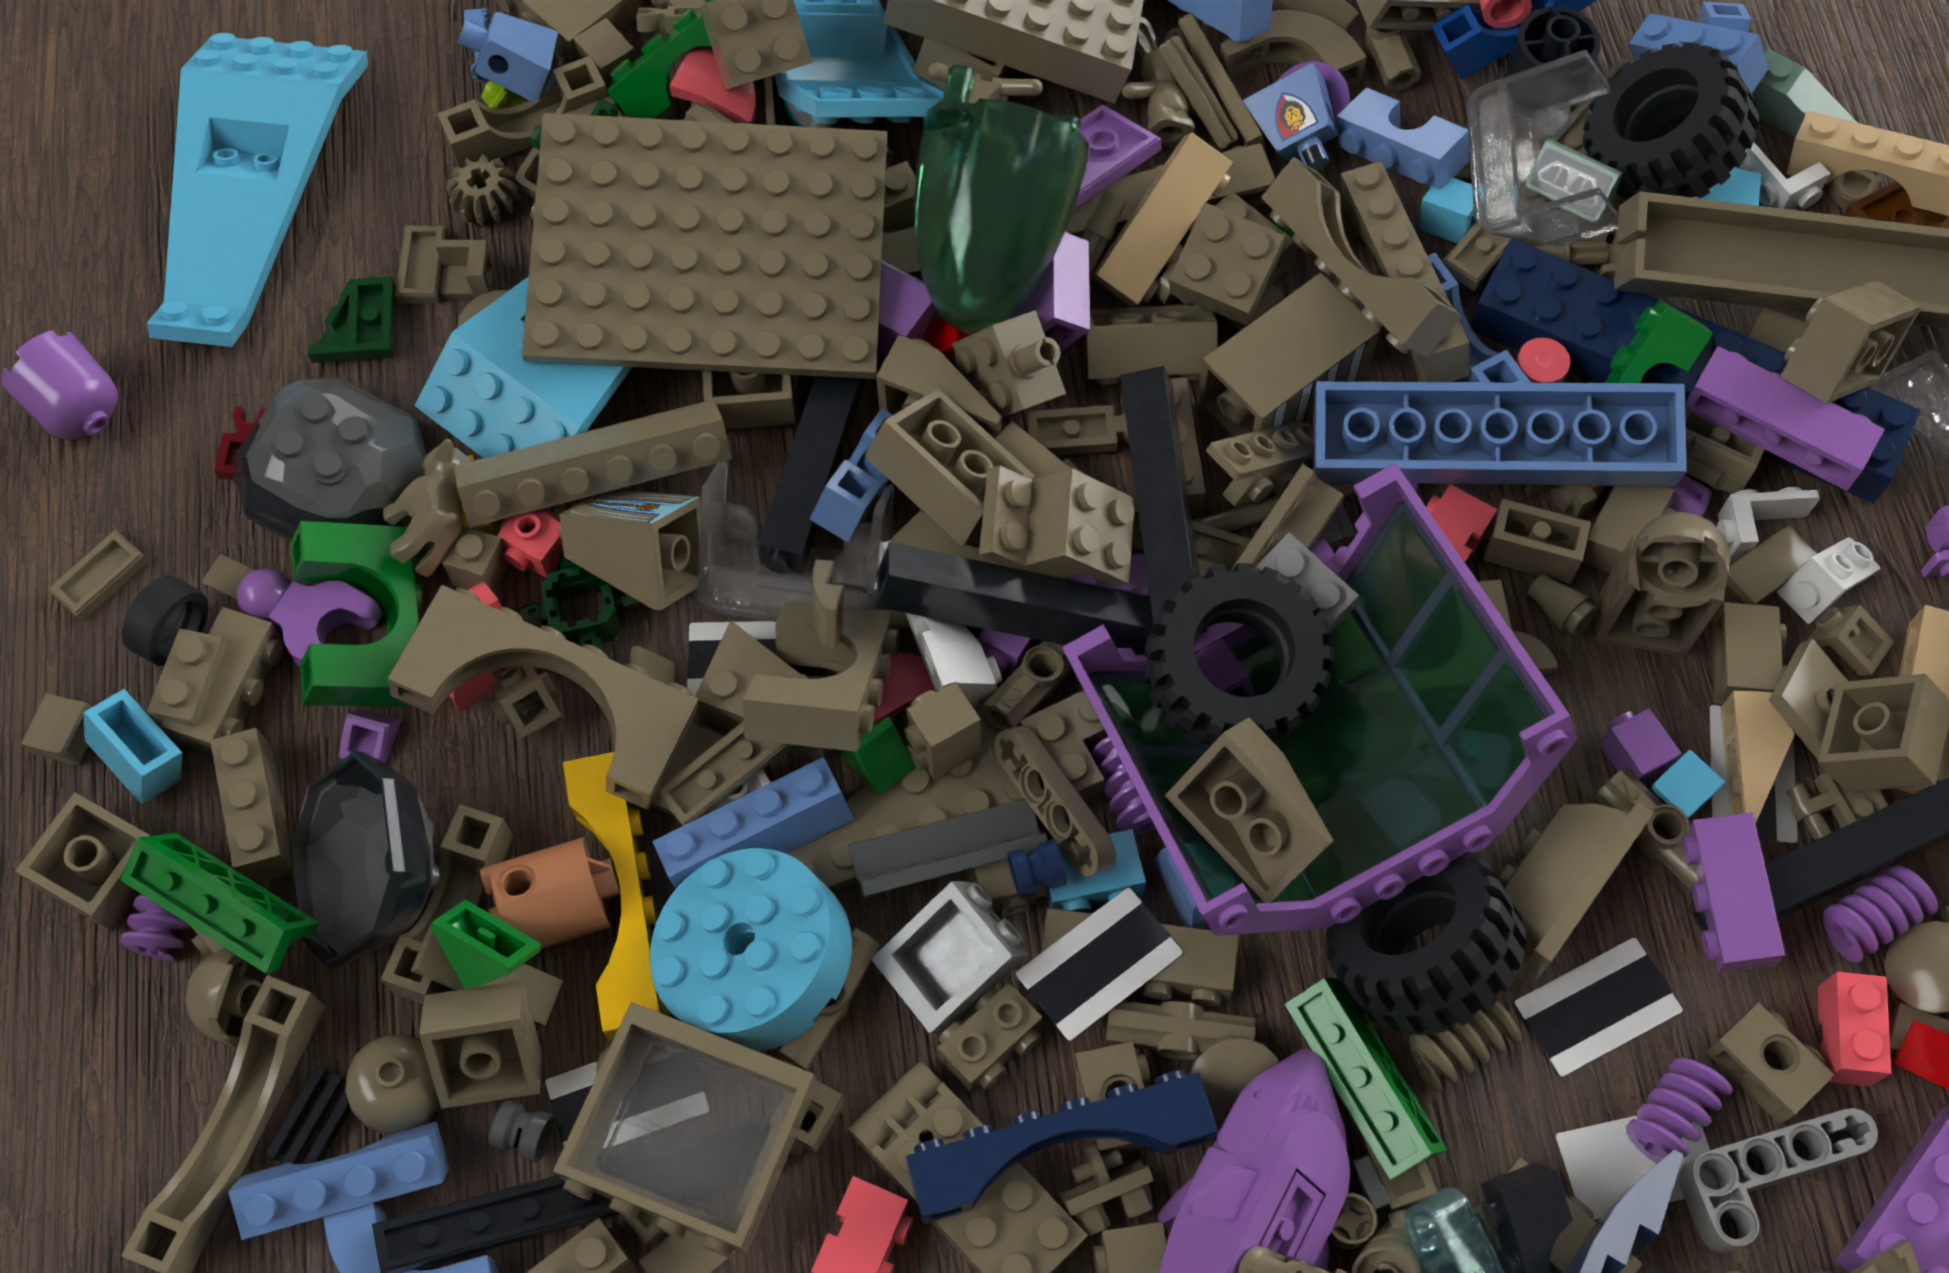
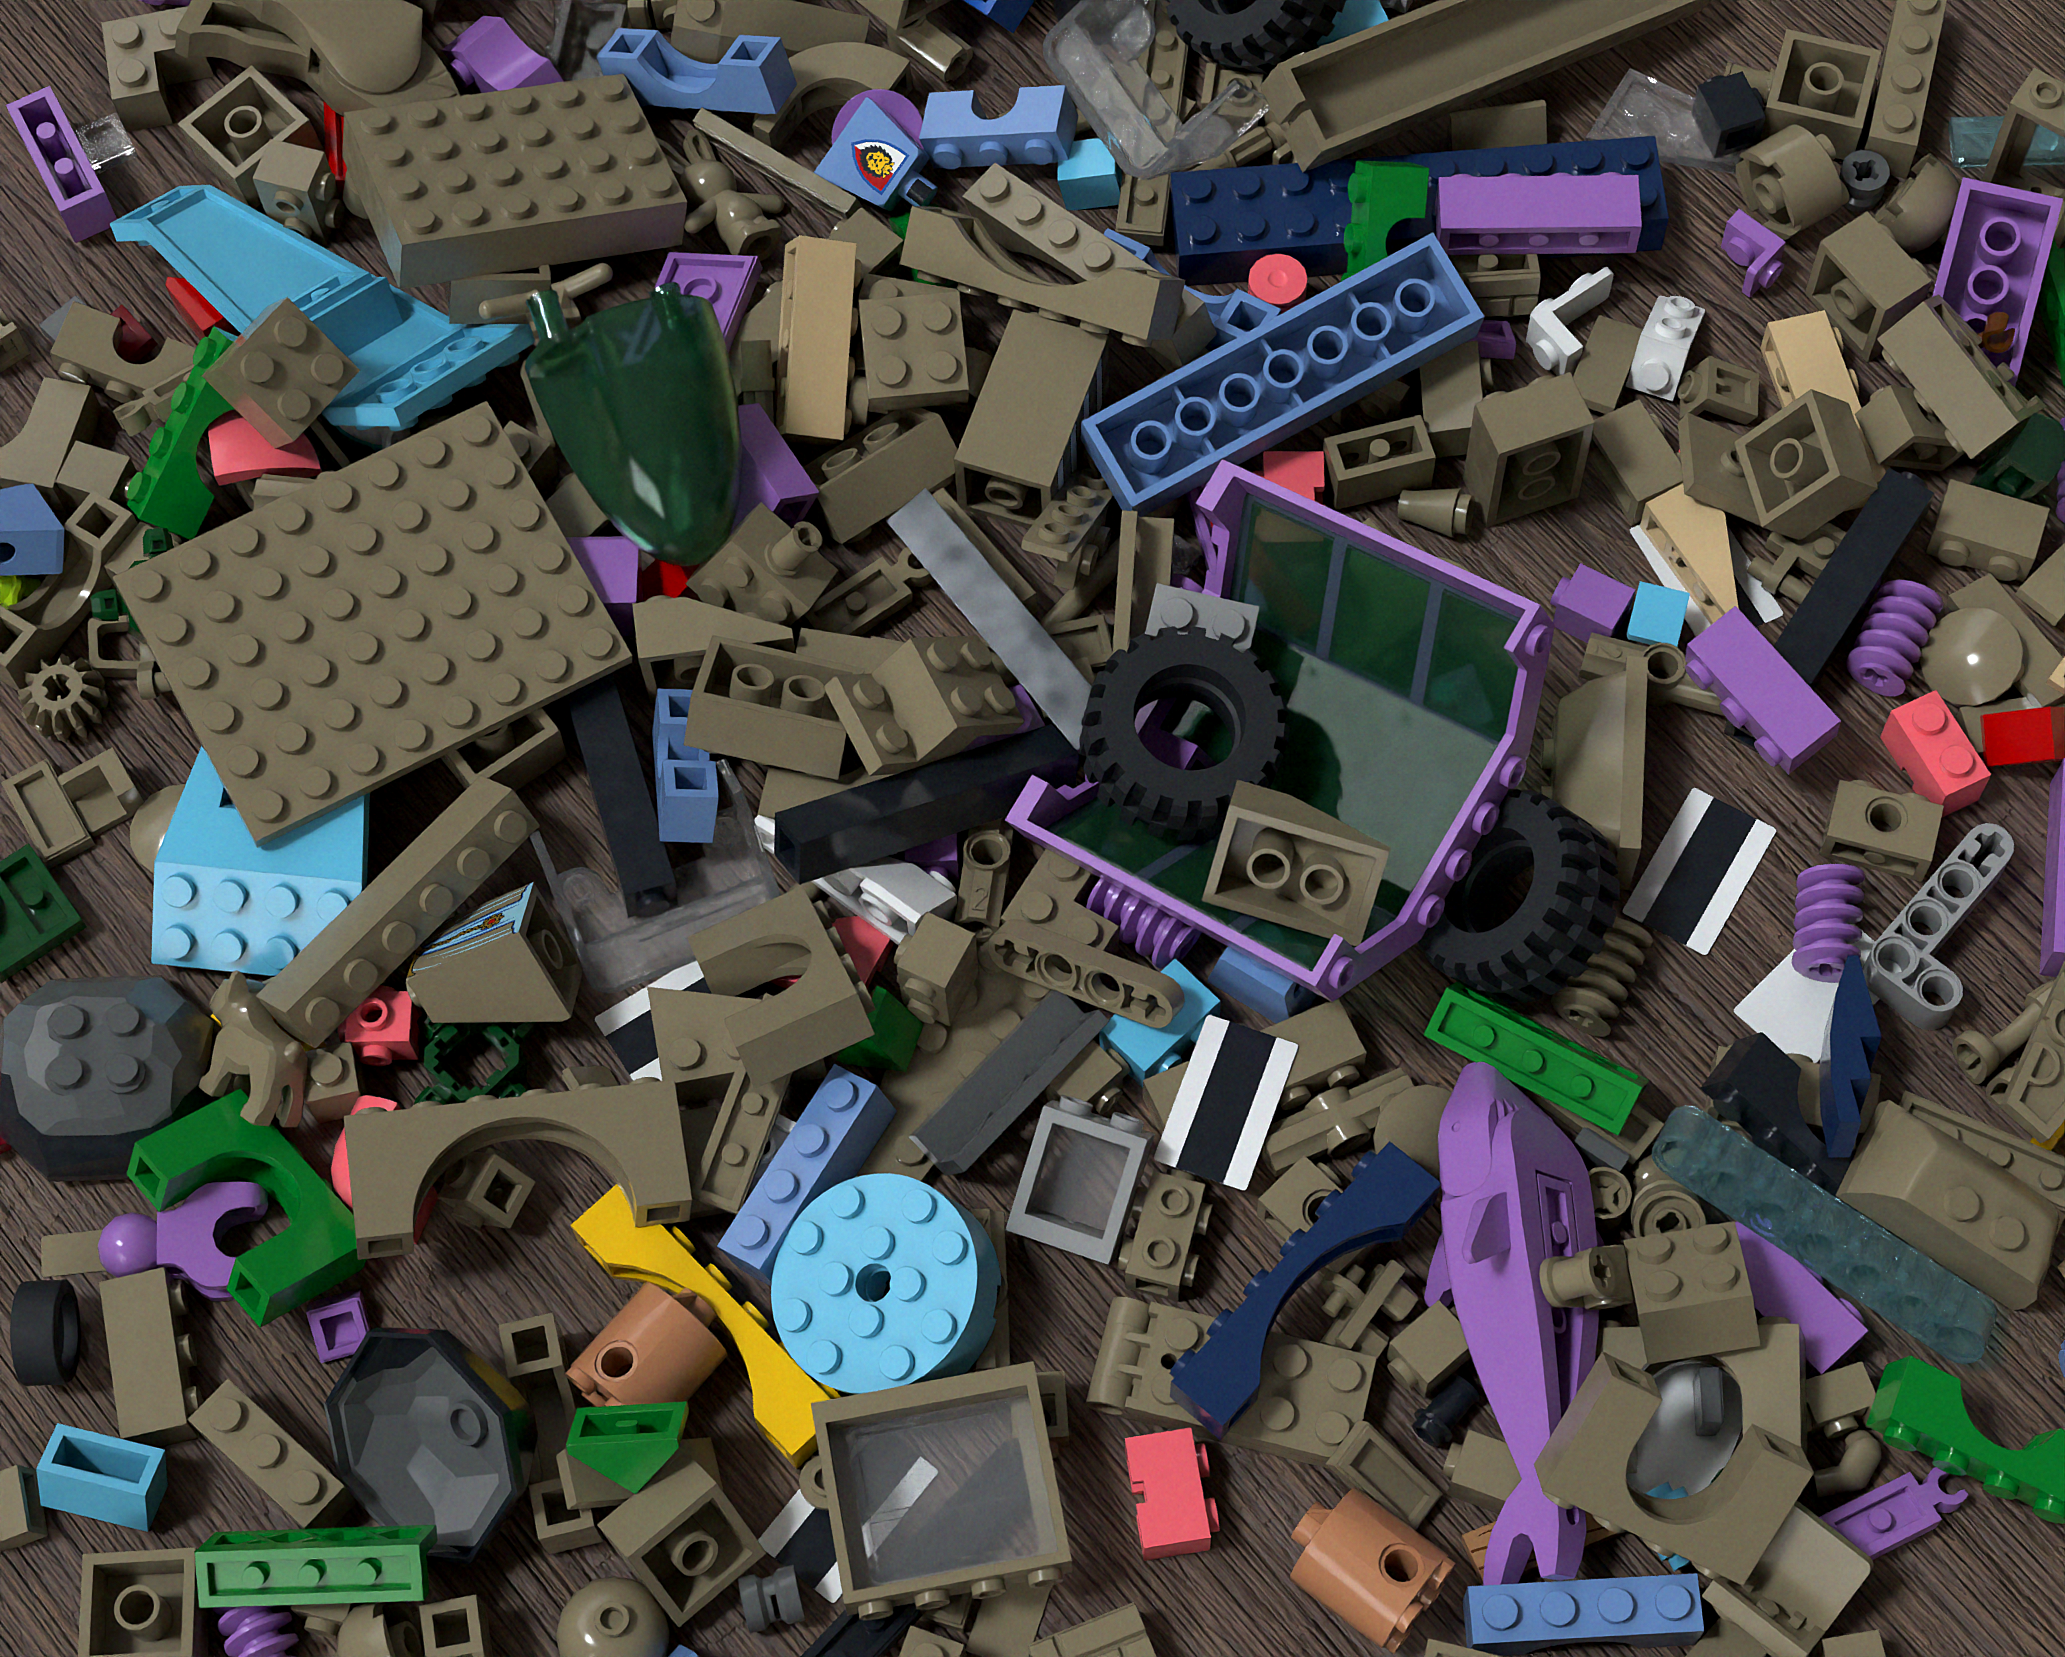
camera: 30 degrees left, 0 degrees up
(187, 677) = (117, 1372): dark tan plate -> none
(827, 604) = (739, 913): dark tan slope -> none
(1041, 867) = (1113, 1046): dark blue wheel -> none
(1198, 92) = (762, 187): dark tan axle -> none
(1566, 172) = (1190, 79): slope -> none
(1680, 559) = (1536, 405): dark tan cylinder -> none
(1849, 340) = (1555, 106): dark tan brick -> none

